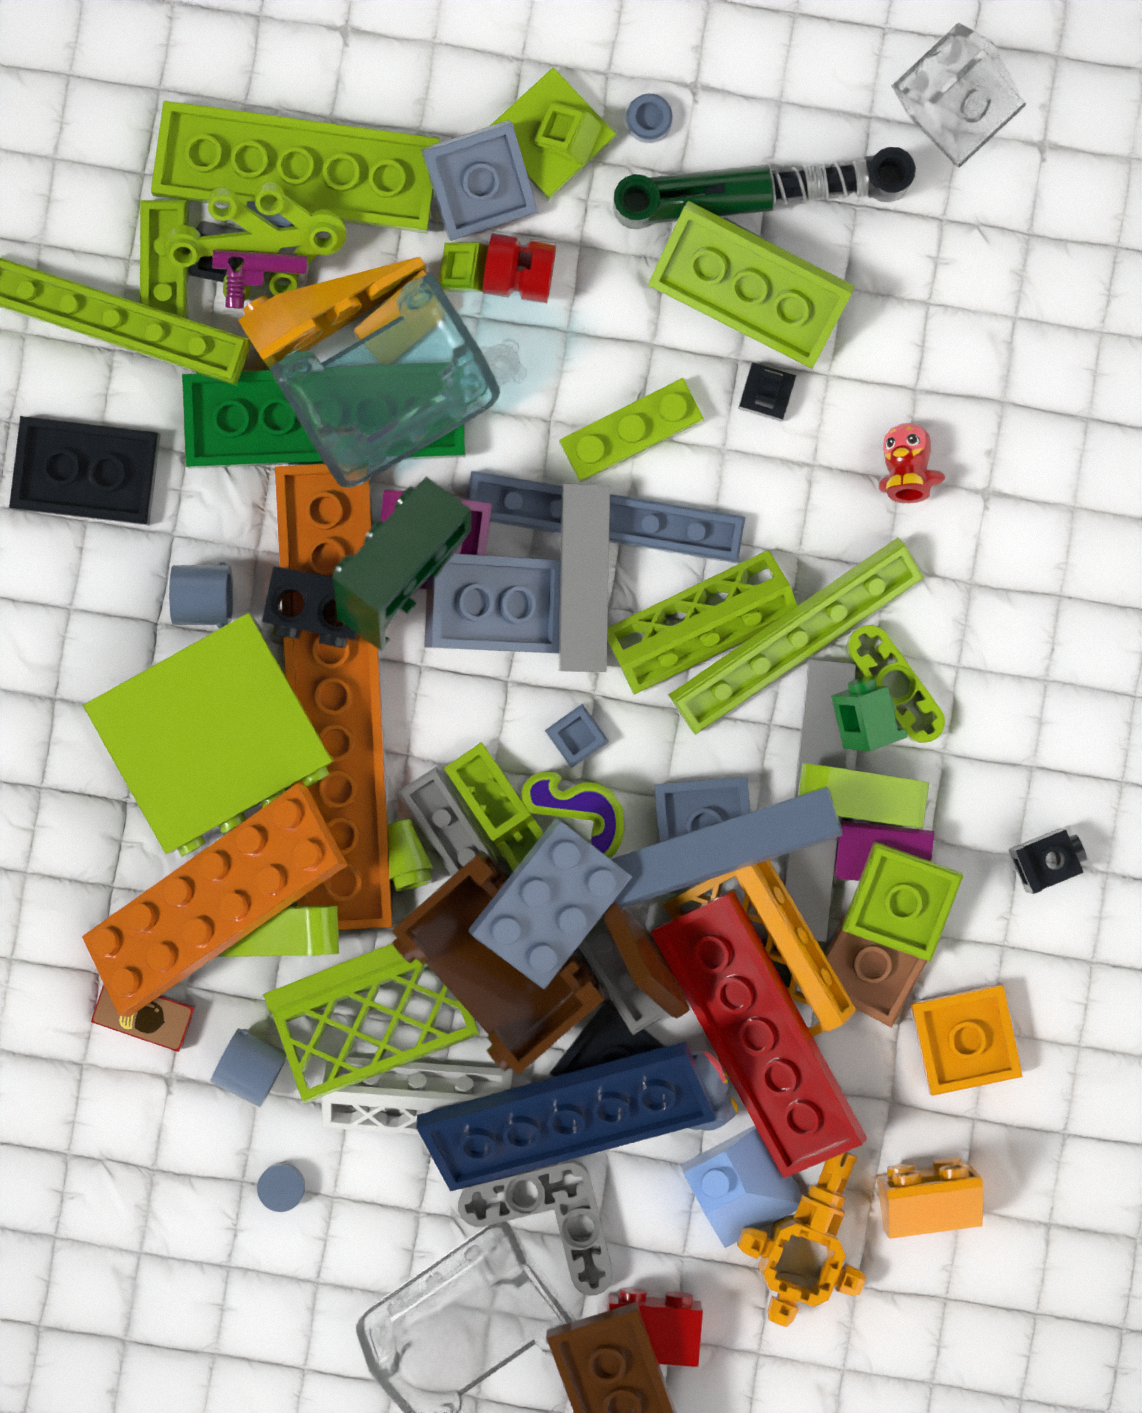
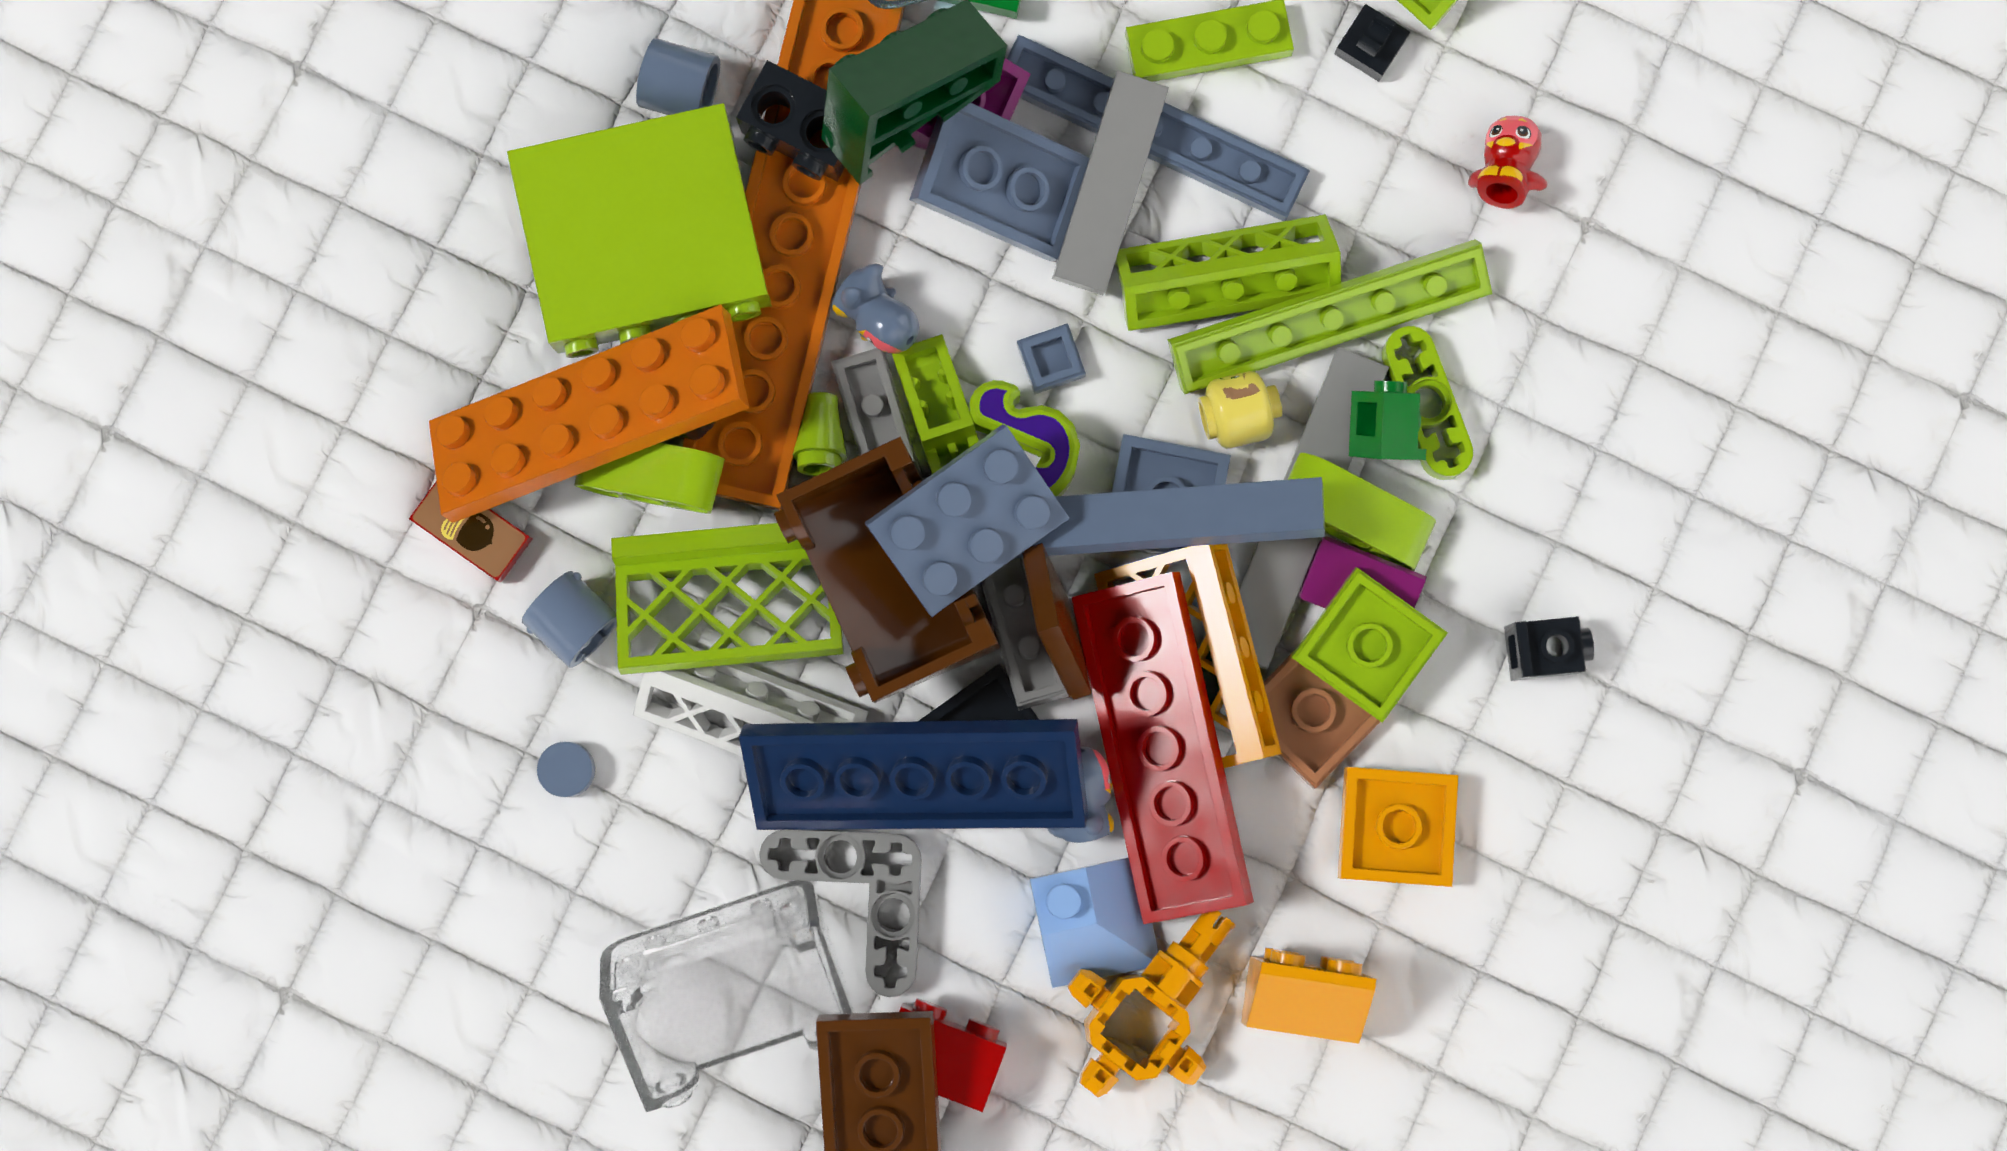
camera: 20 degrees right, 5 degrees down
(426, 745) = (878, 316): none -> sand blue animal
(743, 736) = (1239, 409): none -> light yellow head

